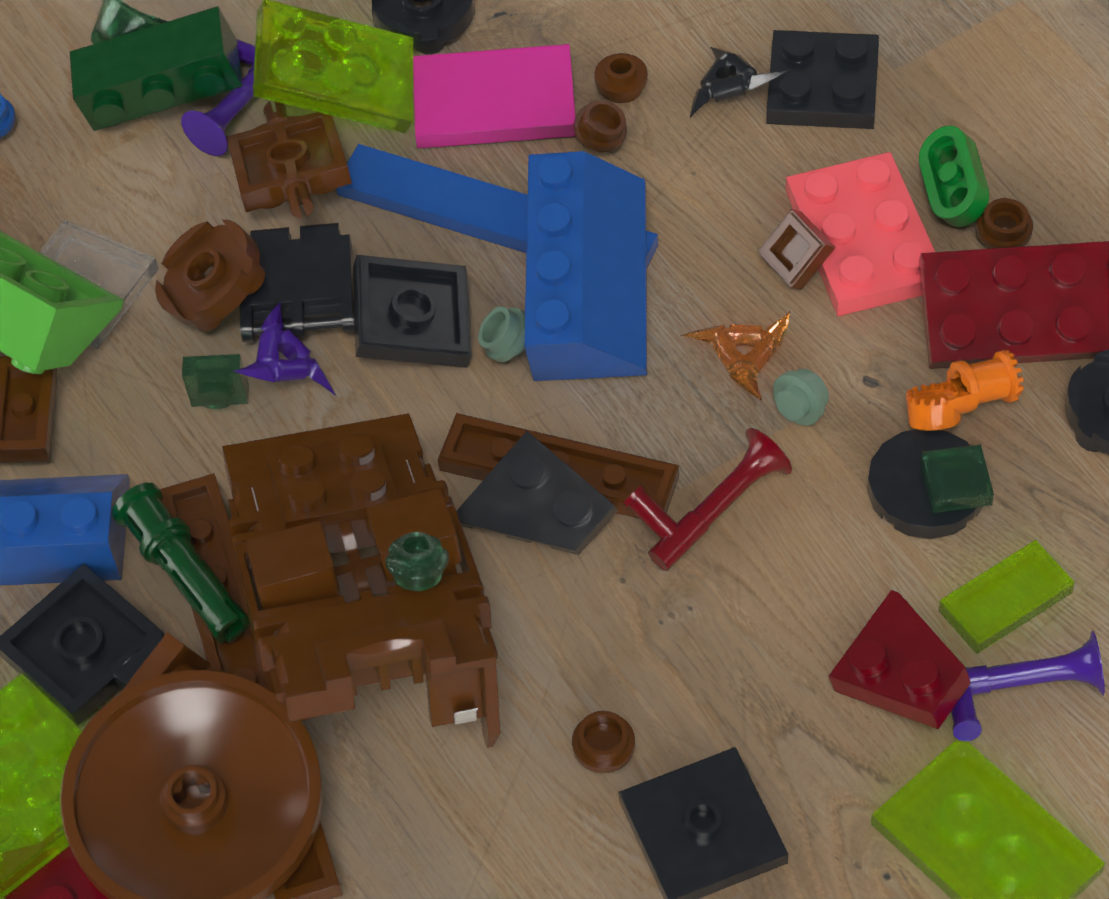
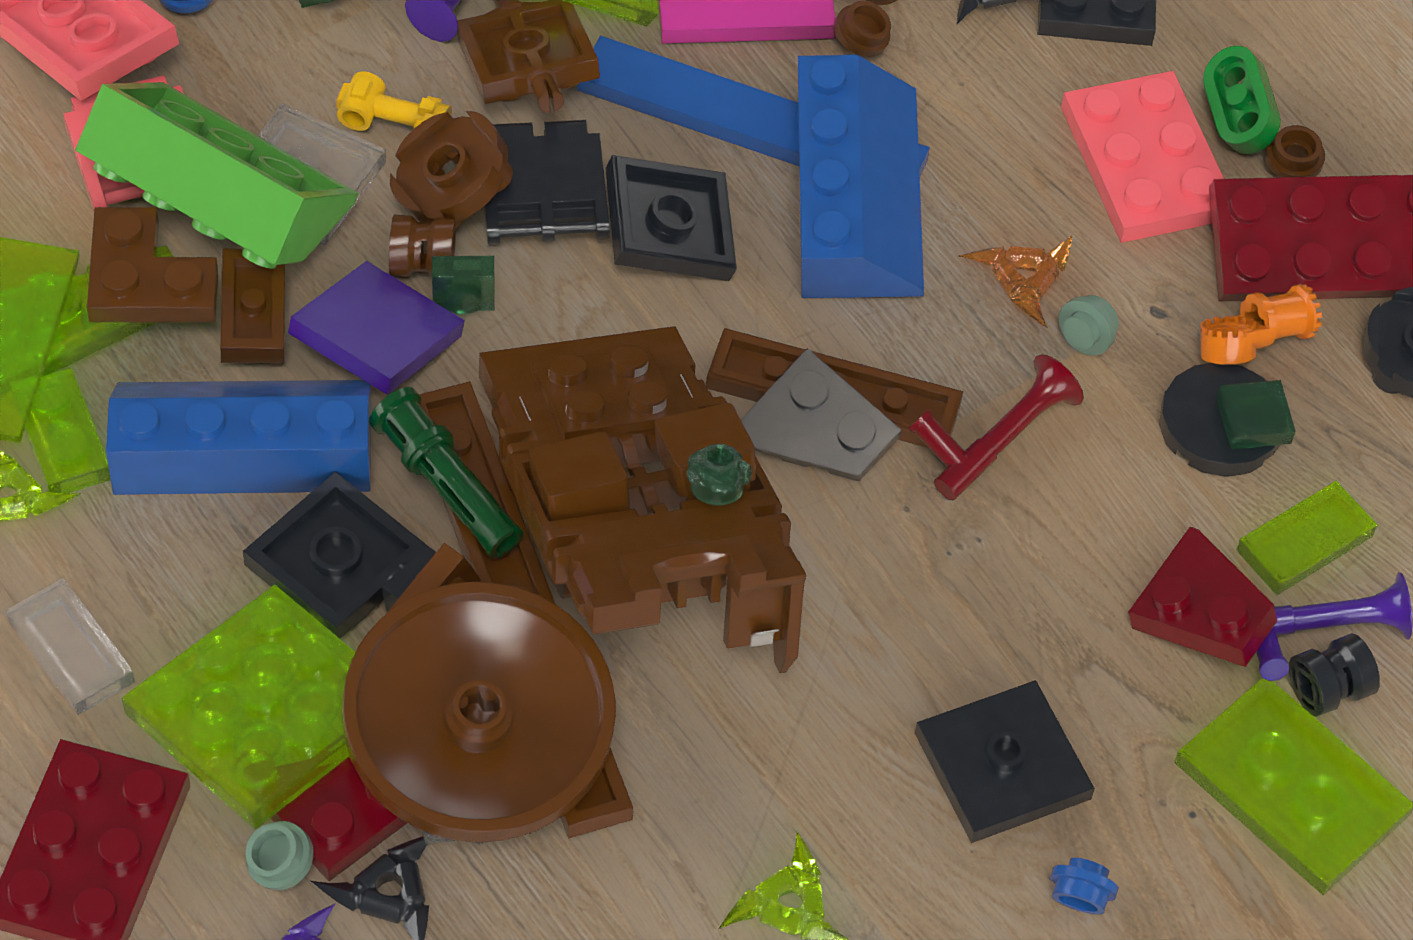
camera: 10 degrees left, 0 degrees up
(133, 424) = (376, 327): none -> dark purple tile
(142, 211) = (365, 99): none -> yellow bar
(171, 342) = (408, 241): none -> reddish brown wheel
(273, 369) = (532, 246): dark purple piece -> none
(503, 333) = (772, 246): sand green plate -> none
(603, 742) = (897, 671): reddish brown plate -> none
(796, 249) = (1078, 170): reddish brown tile -> none
(1027, 734) = (1335, 674): none -> black wheel

